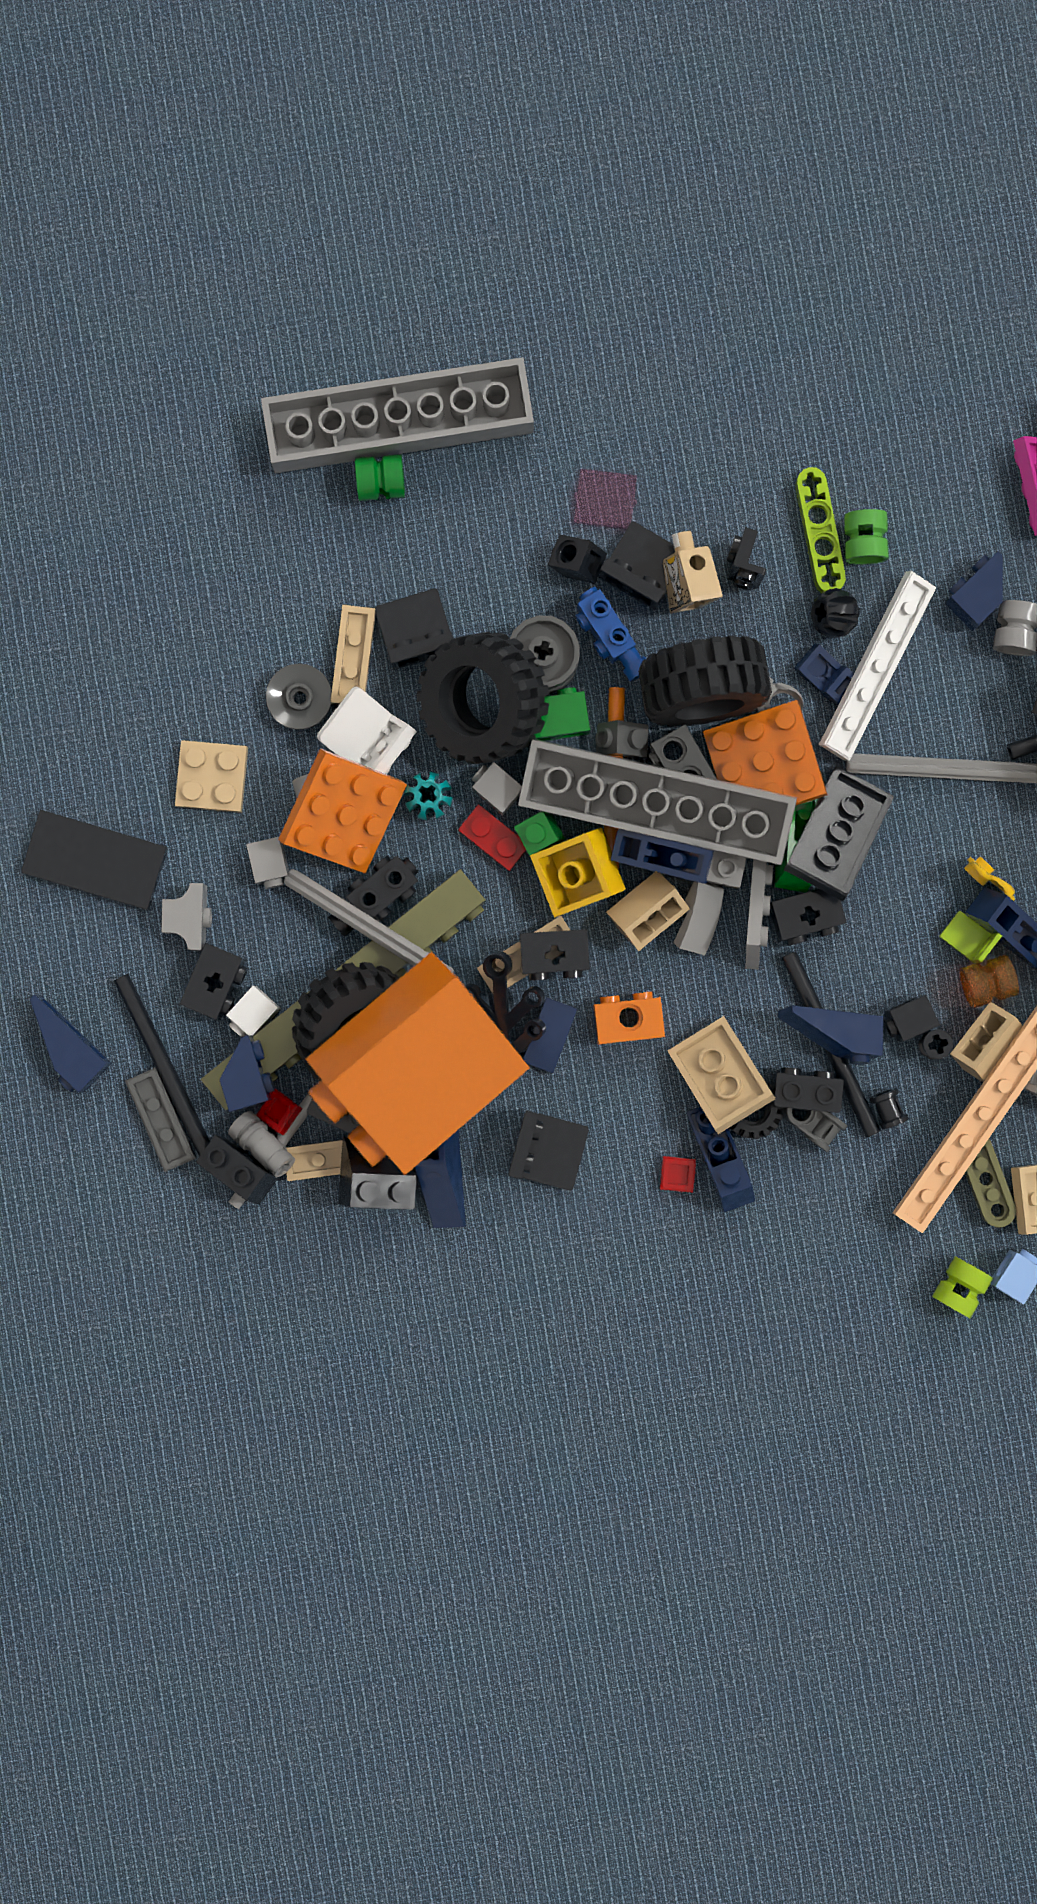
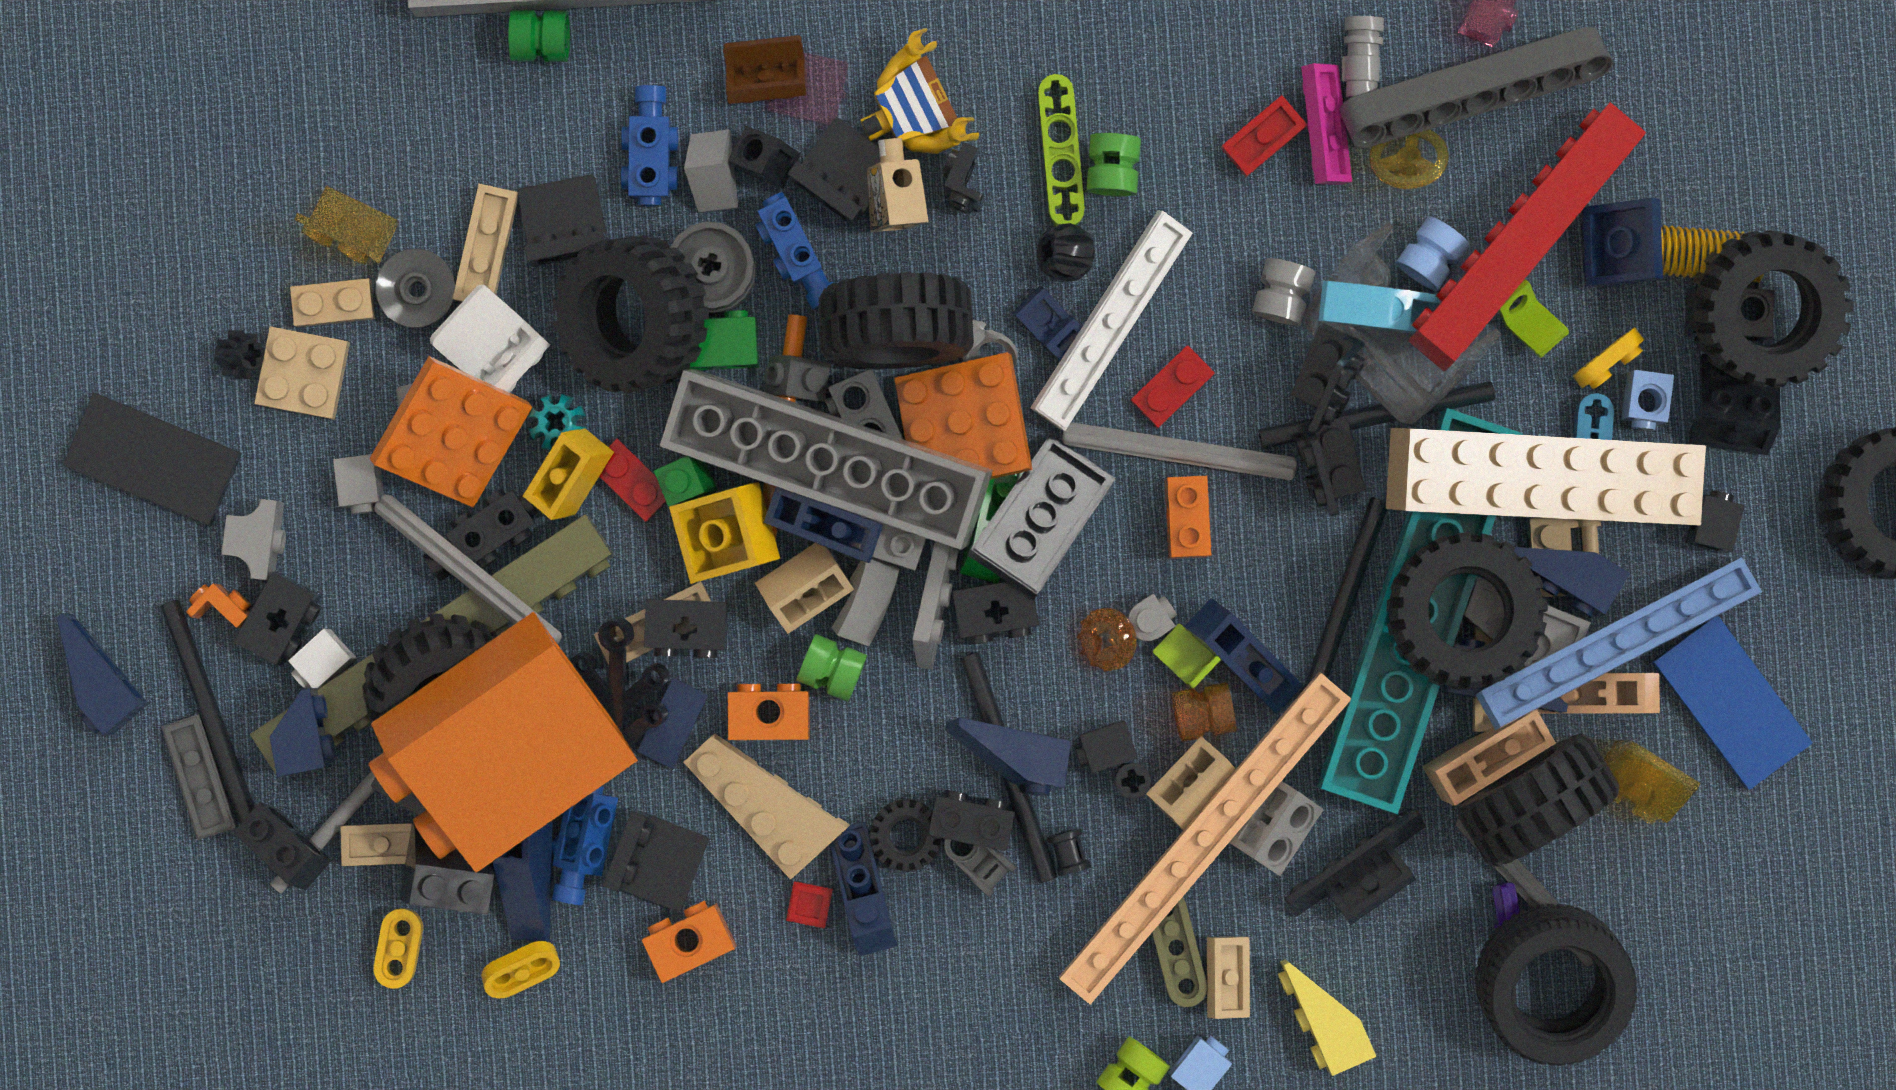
camera: 10 degrees right, 0 degrees up
(158, 765) = (239, 354): none -> black gear
(173, 974) = (230, 605): none -> orange bracket
(230, 716) = (332, 302): none -> tan plate
(238, 649) = (354, 226): none -> clear yellow bracket
(265, 1147) = (318, 822): light grey axle -> none
(279, 1112) = (341, 782): red tile -> none
(341, 1244) = (398, 947): none -> yellow plate
(442, 836) = (568, 473): none -> yellow brick
(444, 1252) = (520, 969): none -> yellow plate
(480, 566) = (649, 155): none -> blue brick
(486, 1144) = (587, 841): none -> blue brick
(496, 788) = (639, 421): light grey brick -> none
(534, 576) = (710, 172): none -> light grey slope
(570, 486) = (765, 69): none -> reddish brown bracket
(602, 1214) = (670, 958): none -> orange brick
(644, 1104) = (770, 811): none -> tan wing
(677, 976) = (831, 667): none -> bright green wheel
(697, 502) = (915, 103): none -> torso
(721, 1075) = (870, 791): tan plate -> none
(915, 926) = (1121, 637): none -> clear orange gear
(932, 716) = (1172, 386): none -> red plate
(936, 908) = (1152, 618): none -> light grey plate
(958, 822) = (1187, 517): none -> orange brick
(979, 595) = (1243, 246): dark blue slope -> none
(981, 871) = (1209, 579): yellow plate -> none
(986, 501) = (1263, 136): none -> red plate

